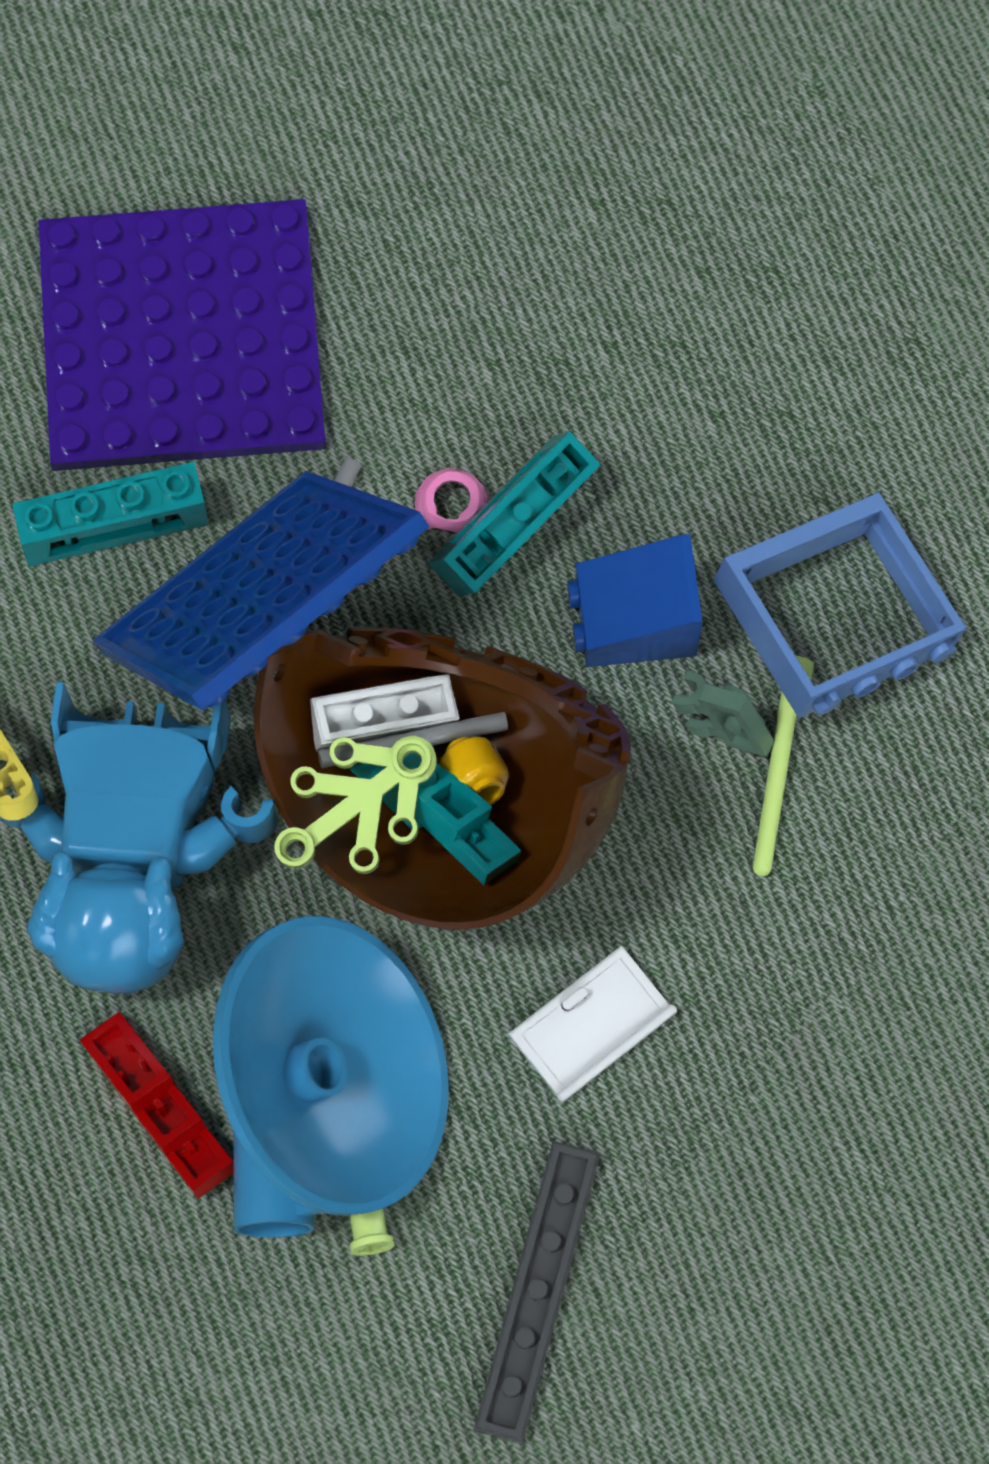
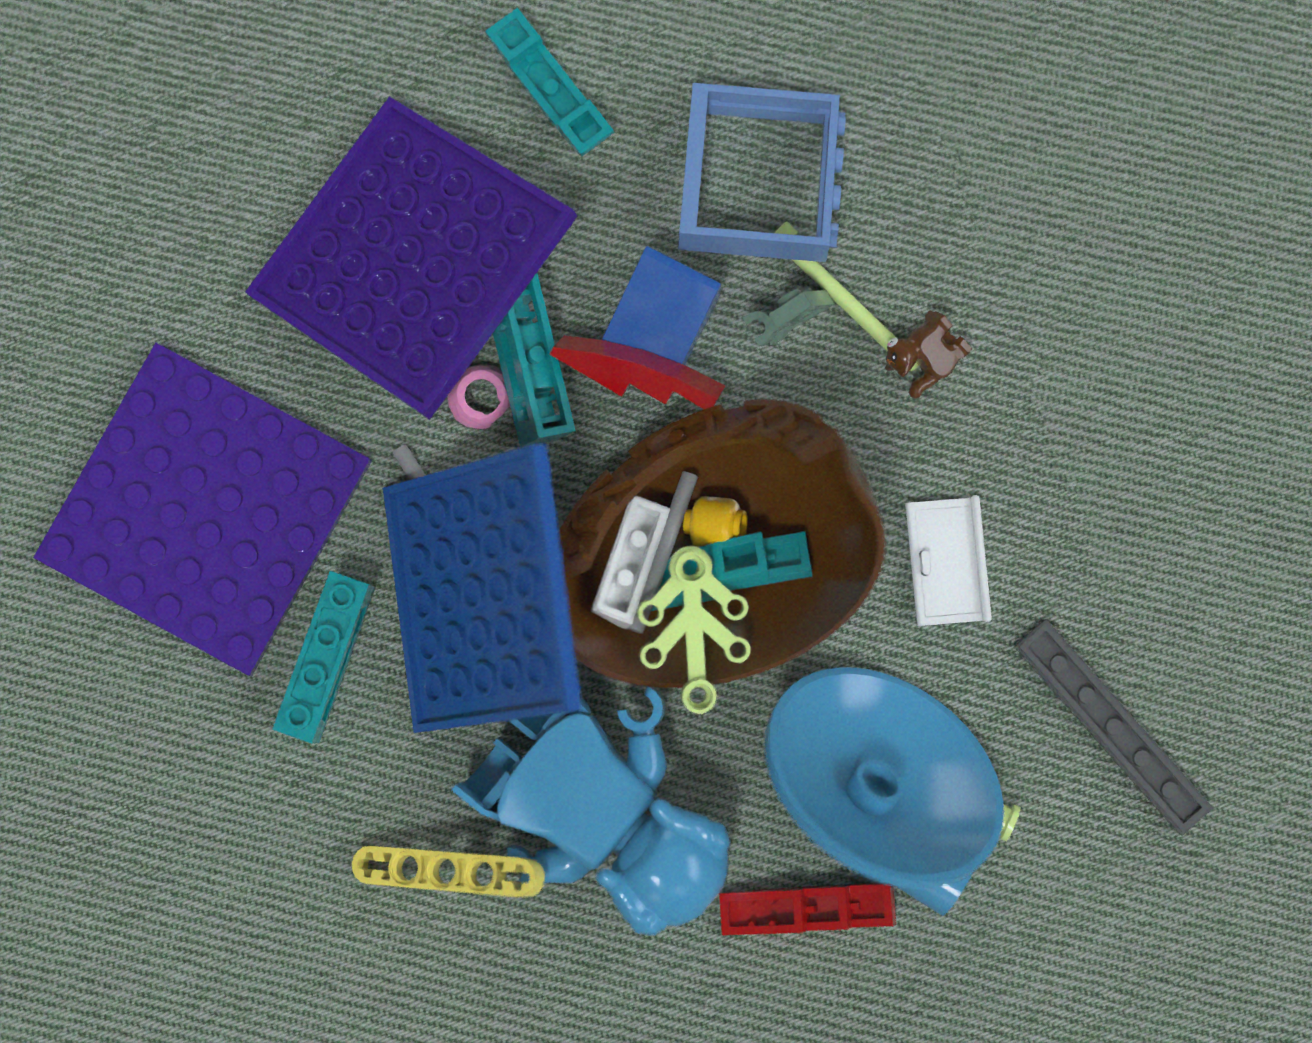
camera: 55 degrees left, 15 degrees up
(535, 350) = (411, 256): none -> dark purple plate
(564, 595) = (621, 366): none -> red slope
(785, 865) = (931, 348): none -> reddish brown animal
(788, 374) = (548, 83): none -> teal slope

